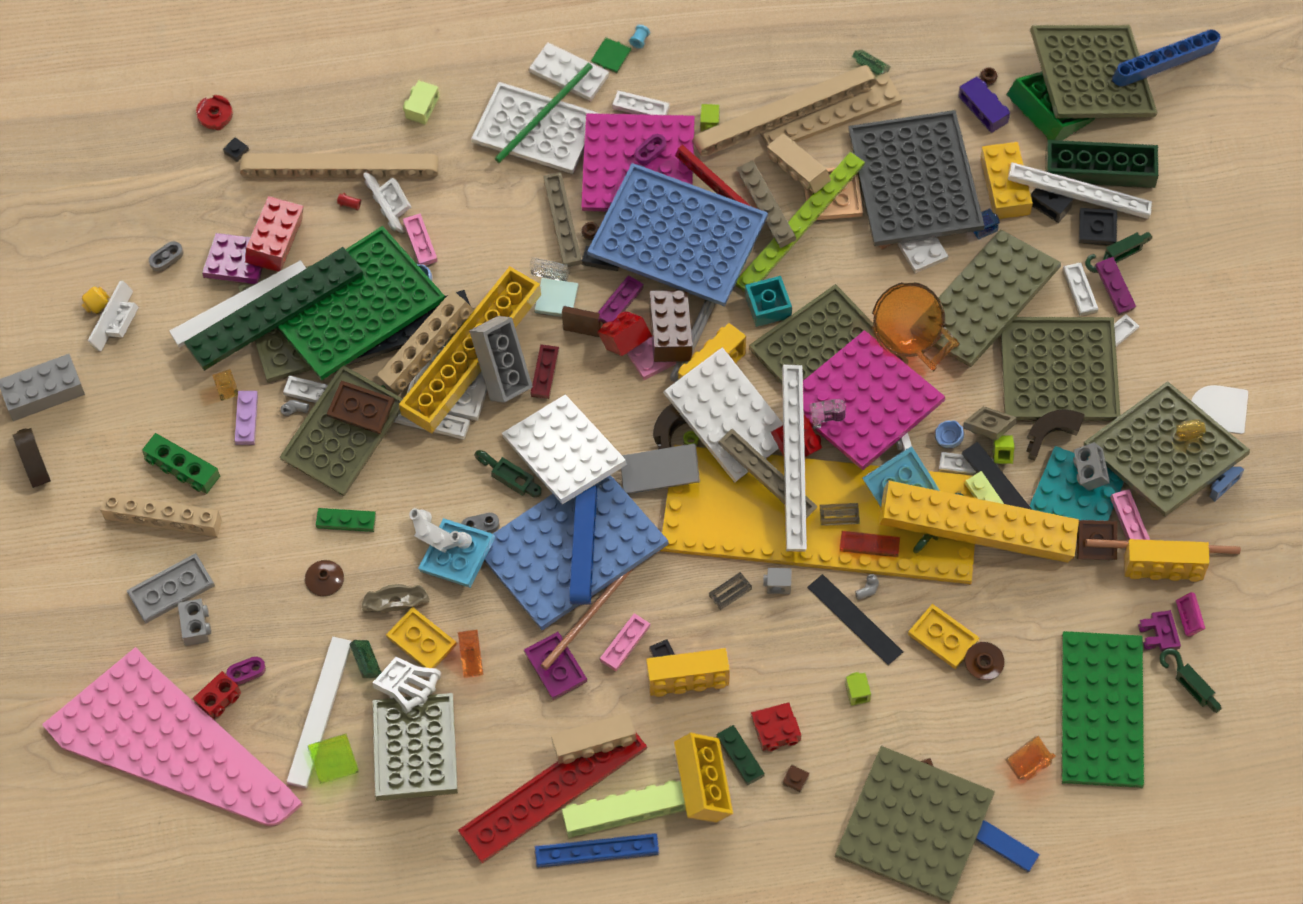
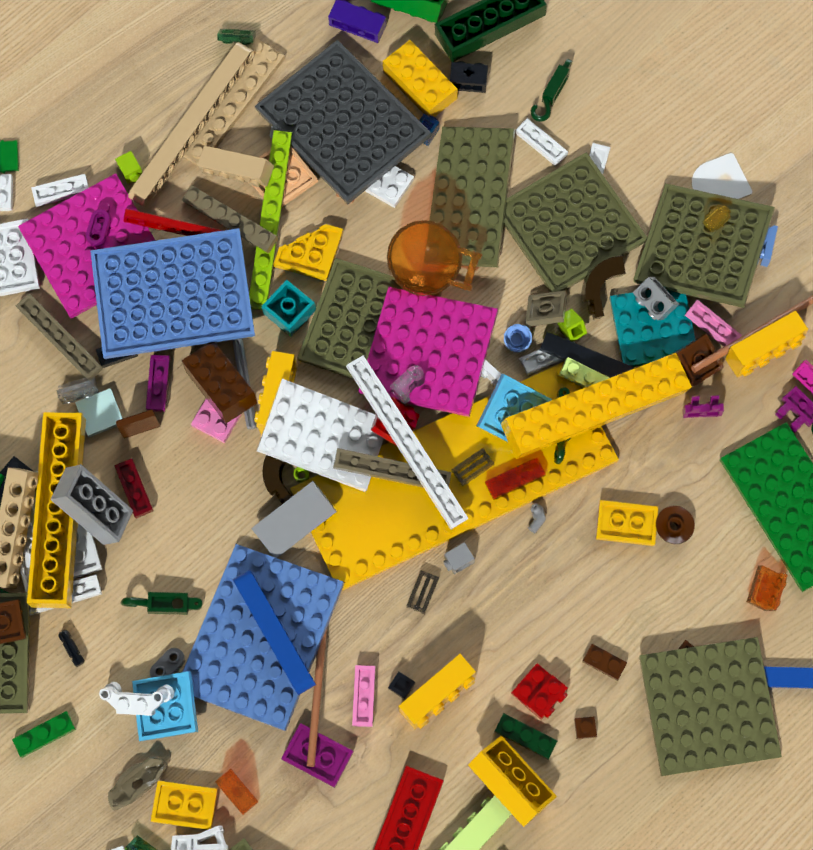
camera: 30 degrees left, 10 degrees up
(324, 585) = (69, 800): reddish brown dish -> none
(411, 466) = (71, 648): none -> black axle
(564, 449) = (199, 552): white plate -> none
(589, 226) = (87, 328): reddish brown plate -> none
(593, 738) = (395, 804): tan brick -> none
(624, 333) = (183, 412): red brick -> none
(639, 36) = (18, 126): medium azure bush -> none
(818, 269) = (311, 253): none -> yellow plate
(848, 736) = (604, 662): none -> reddish brown plate
(855, 619) = (543, 552): black sticker -> none
(857, 688) = (586, 614): lime brick -> none
(1079, 586) = (710, 409): none -> magenta plate
(1080, 190) = (488, 54): white tile -> none
(1097, 226) = (521, 77): black plate -> none
(1115, 286) = (570, 122): magenta plate -> none

